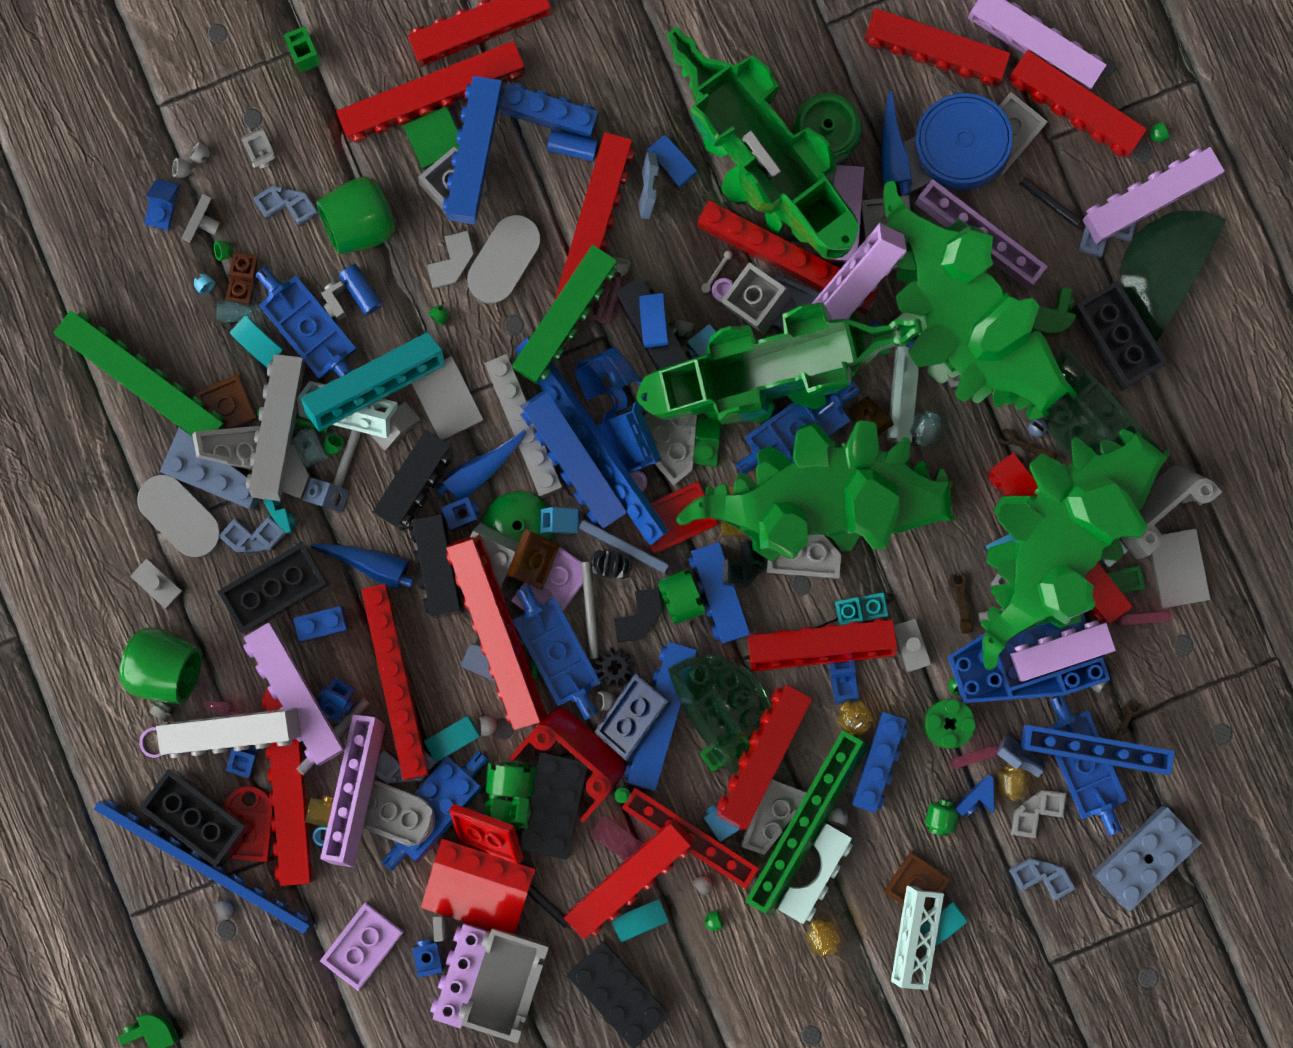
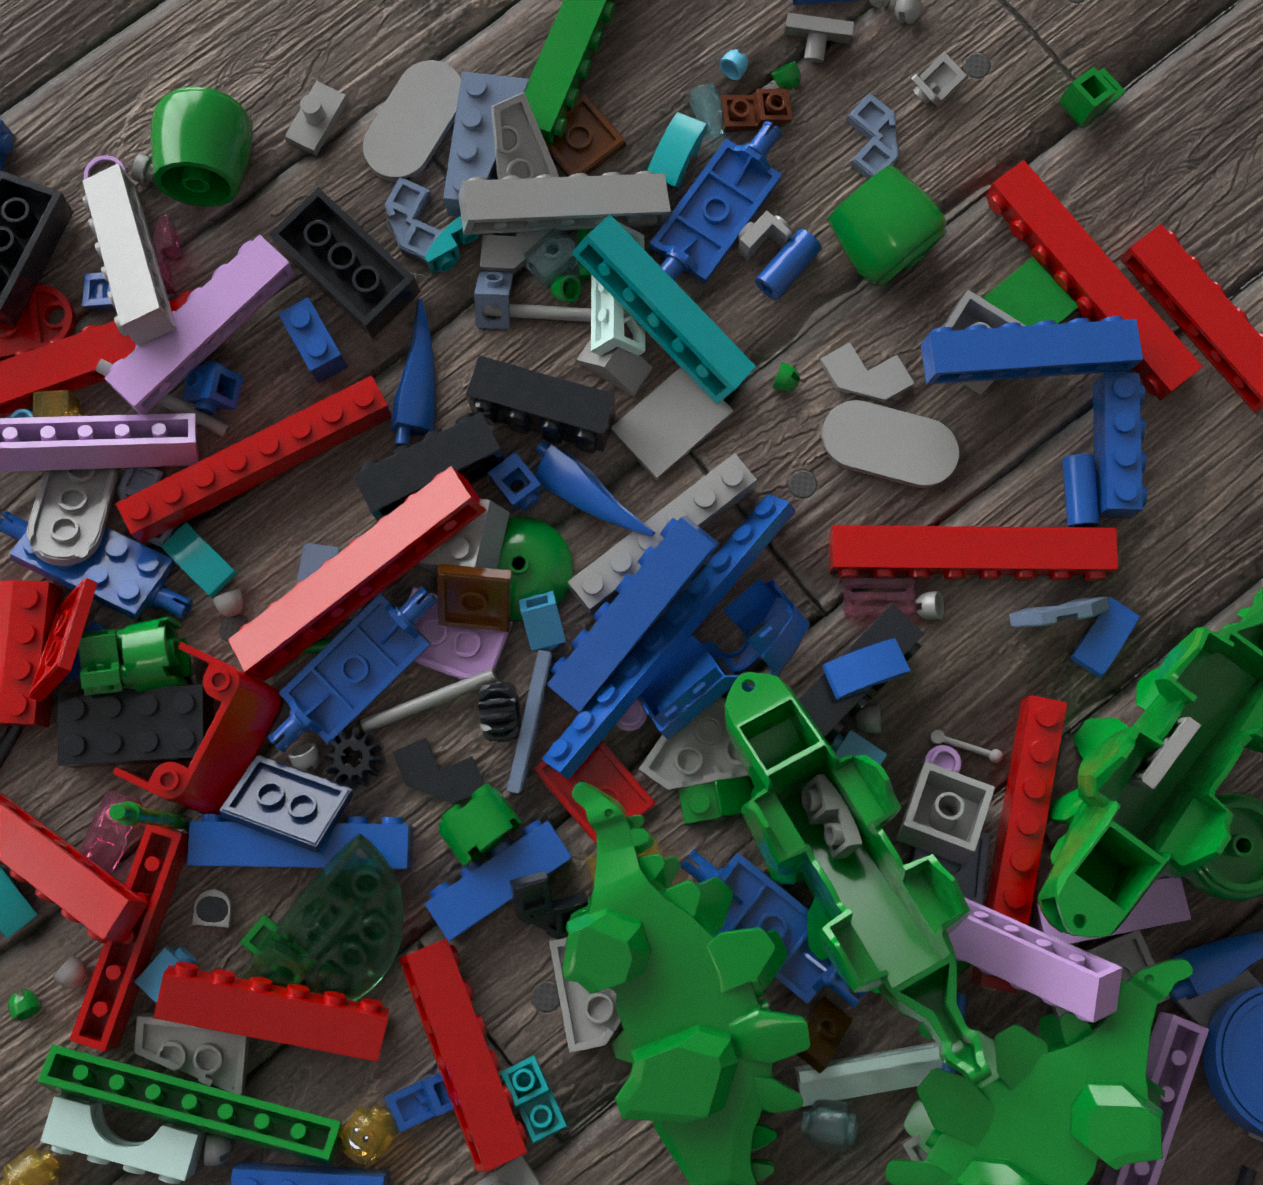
camera: 75 degrees right, 5 degrees down
(564, 315) = (837, 544): green brick -> none
(686, 784) = (213, 909): none -> tile
(733, 370) = (828, 808): none -> light grey slope

